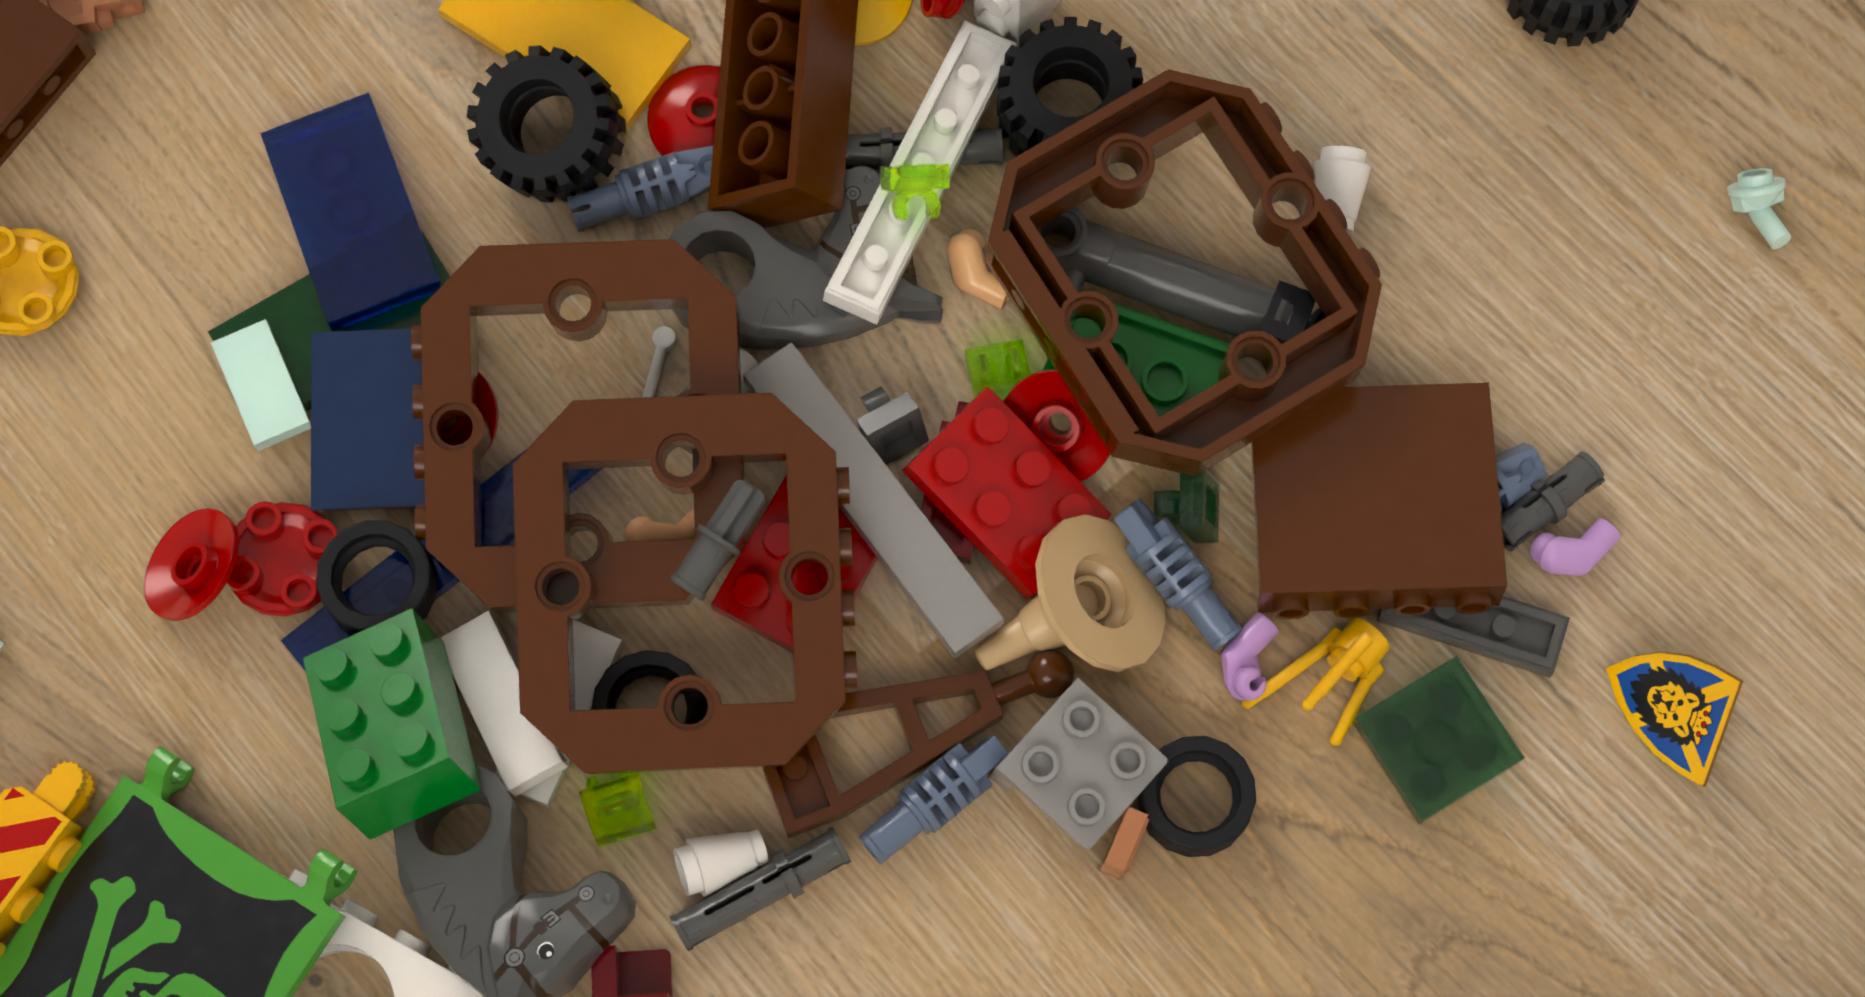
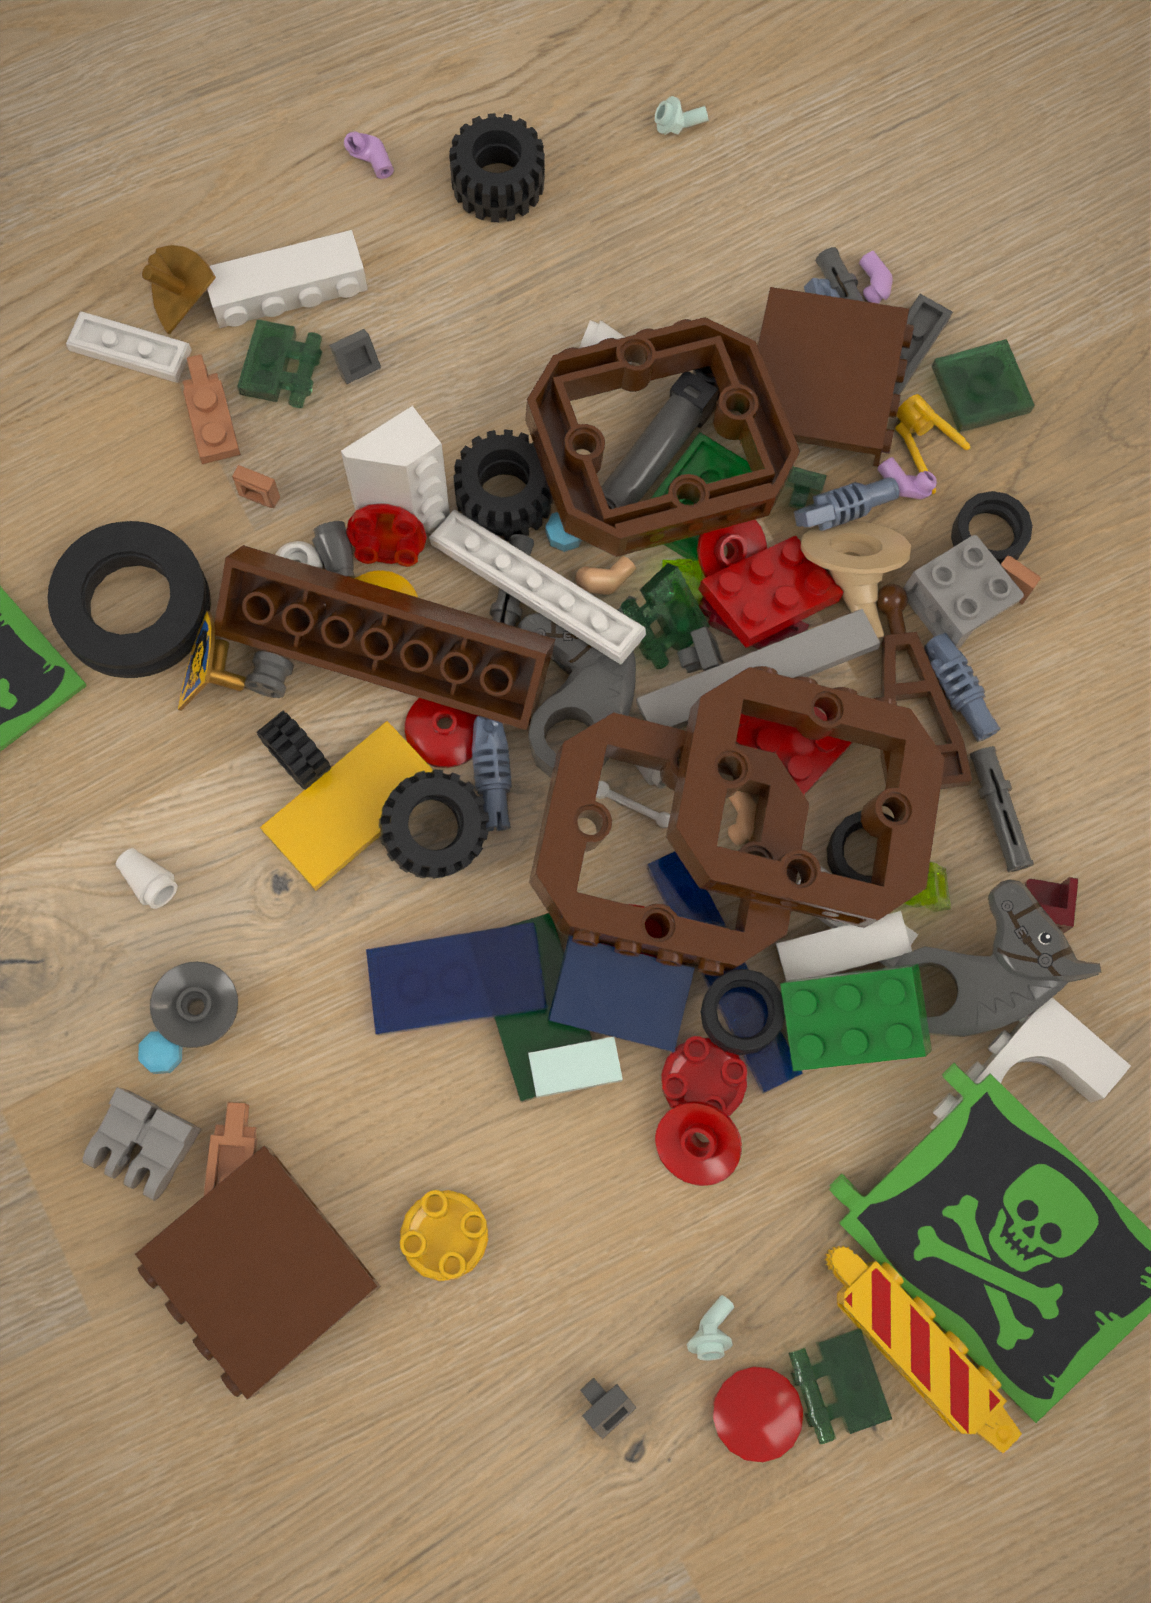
camera: 80 degrees left, 0 degrees up
(718, 860) = (977, 831): white cone -> none
(719, 539) = (797, 753): dark grey axle -> none
(914, 181) = (555, 581): clear neon green tile -> none
(939, 359) = (675, 610): none -> clear green plate
(1677, 707) = (994, 246): shield -> none

